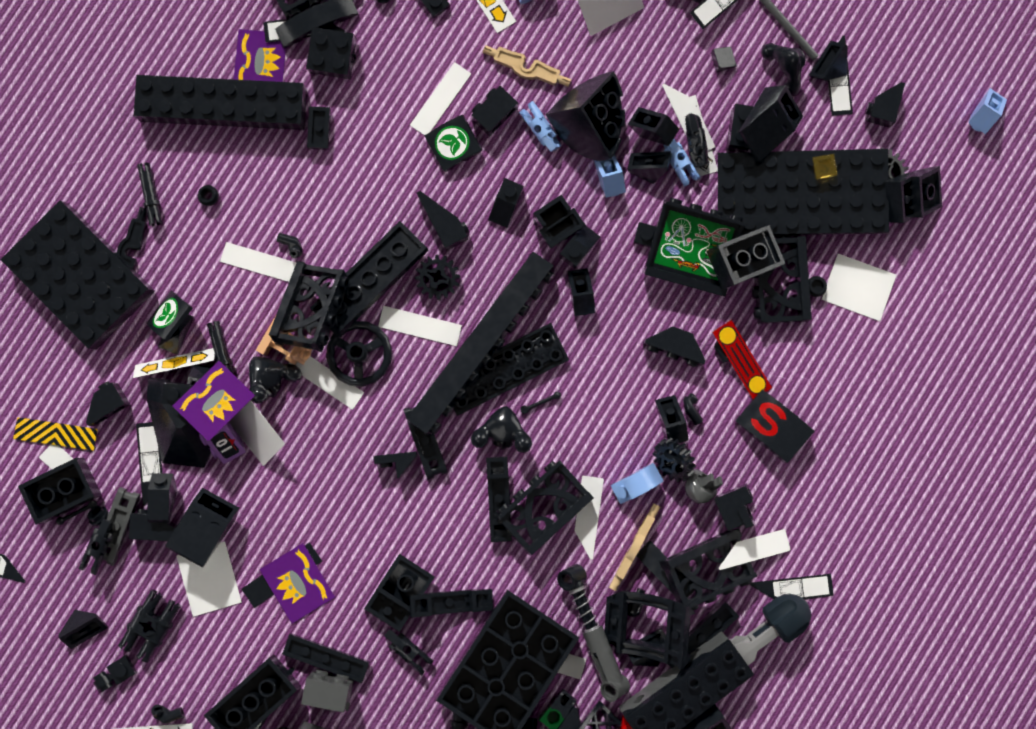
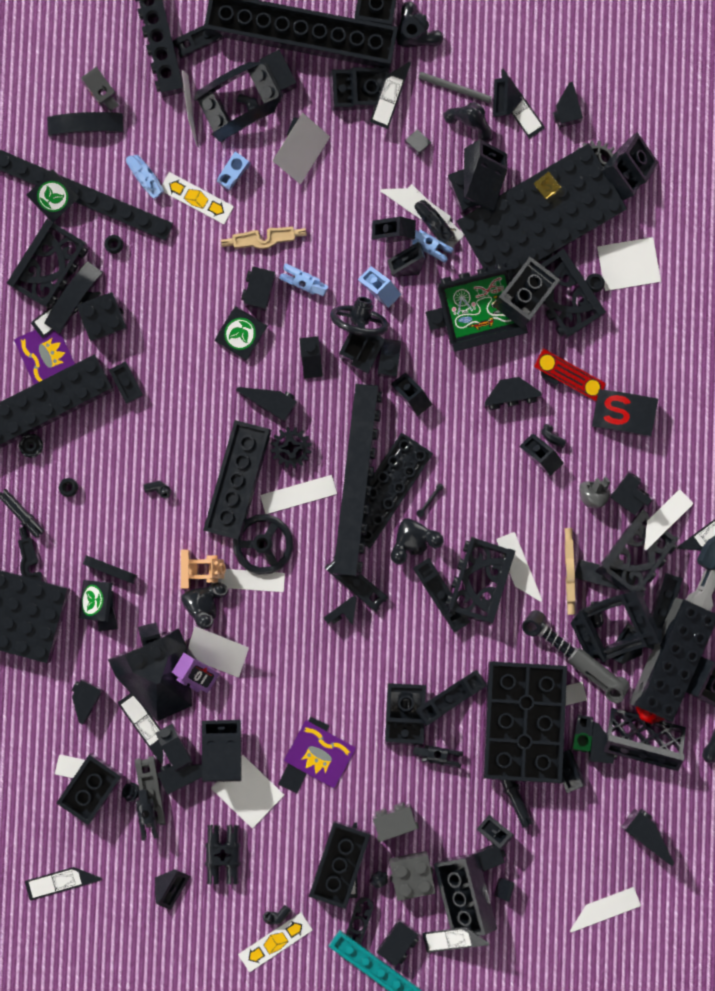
camera: 30 degrees left, 0 degrees up
(55, 433) = (57, 747): sticker -> none
(60, 520) = (102, 813): black hinge -> none
(119, 671) = (219, 904): black plate -> none
(174, 362) = (120, 636): sticker -> none
(190, 133) = (25, 443): none -> black plate
(201, 294) = (109, 569): none -> black beam
(213, 401) = (173, 645): dark purple sticker -> none
(219, 345) = (159, 614): black pin -> none
(257, 261) = (141, 517): white sticker -> none
(321, 320) = (222, 527): black fence -> none
(325, 657) = (377, 798): black plate -> none
(440, 99) = (209, 303): white sticker -> none
(574, 188) = (360, 315): none -> black piece
(591, 117) = (339, 250): black brick -> none
(637, 483) = (543, 520): light blue brick -> none
(674, 459) = (561, 484): black gear -> none
(987, 111) = (651, 66): light blue slope -> none

